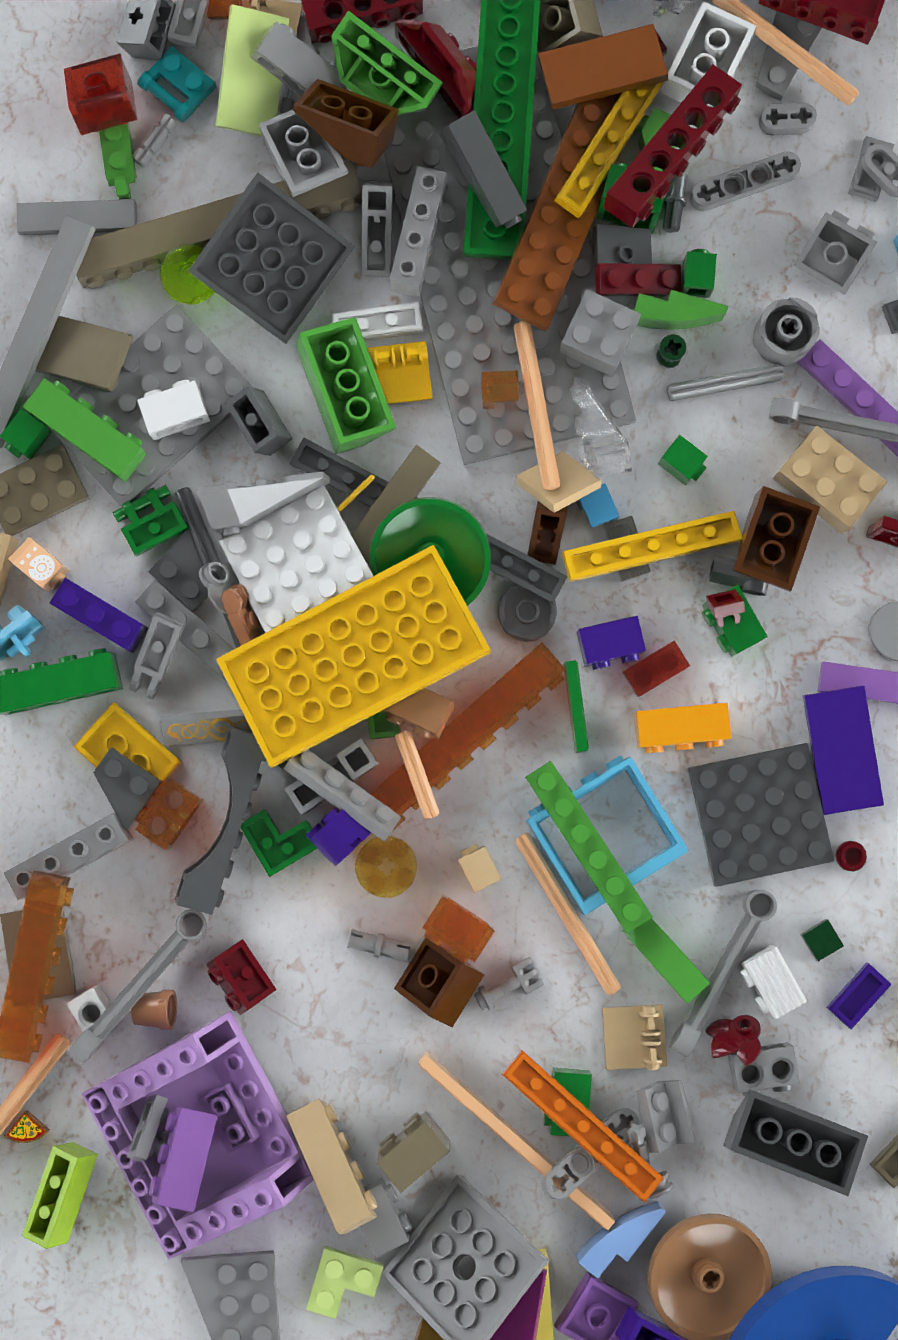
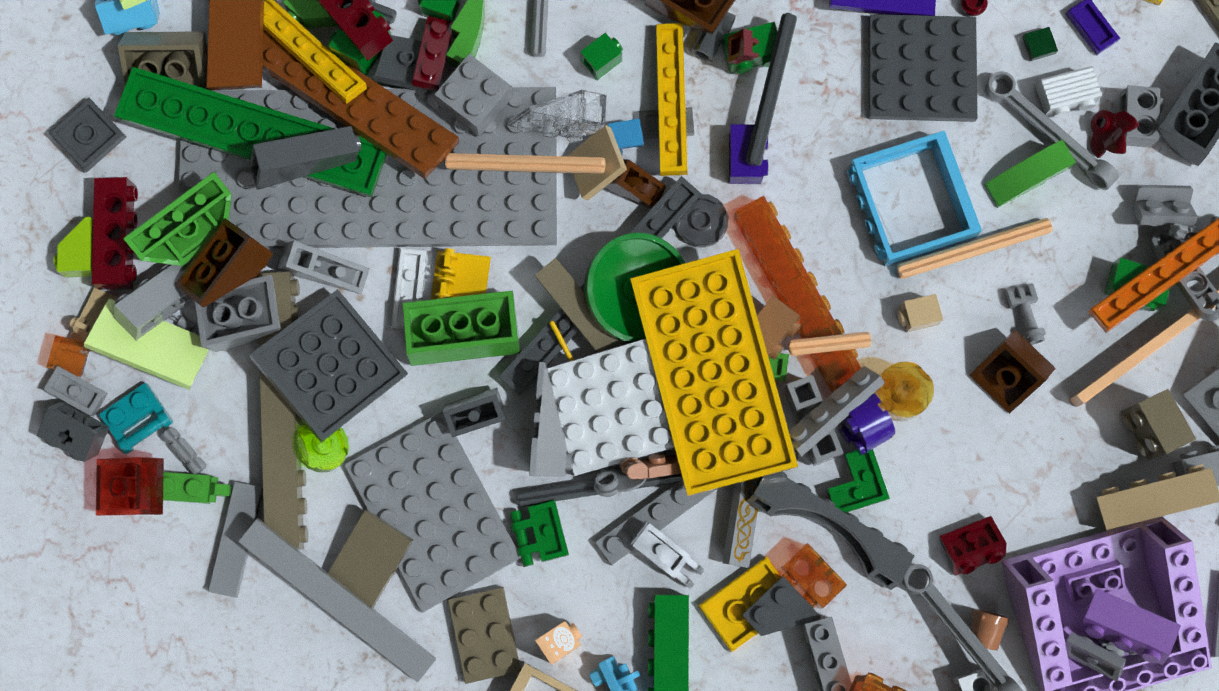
camera: 75 degrees left, 5 degrees down
(25, 435) = (431, 632): green brick -> none
(84, 429) = (443, 571): bright green brick -> none
(98, 615) = (617, 599): dark purple brick -> none
(173, 409) = (445, 485): white brick -> none
(180, 572) = (594, 515): dark grey wing -> none
(379, 945) = (969, 416): light grey pin -> none
(418, 231) = (340, 229): light grey brick -> none
(441, 56) = (186, 170): dark red wedge -> none
(458, 929) = (976, 336): clear orange brick -> none
(499, 387) = (501, 192): clear orange panel -> none
(576, 706) = (798, 197): green tile -> none
(588, 847) = (923, 212): bright green plate -> none
(634, 1037) = (1092, 217): tan hinge -> none
(656, 669) = (782, 129): clear red plate -> none
(675, 343) = (498, 35): dark green bush -> none
(682, 727) = (834, 112): light orange brick -> none
(687, 649) = (771, 89): none -> dark grey axle

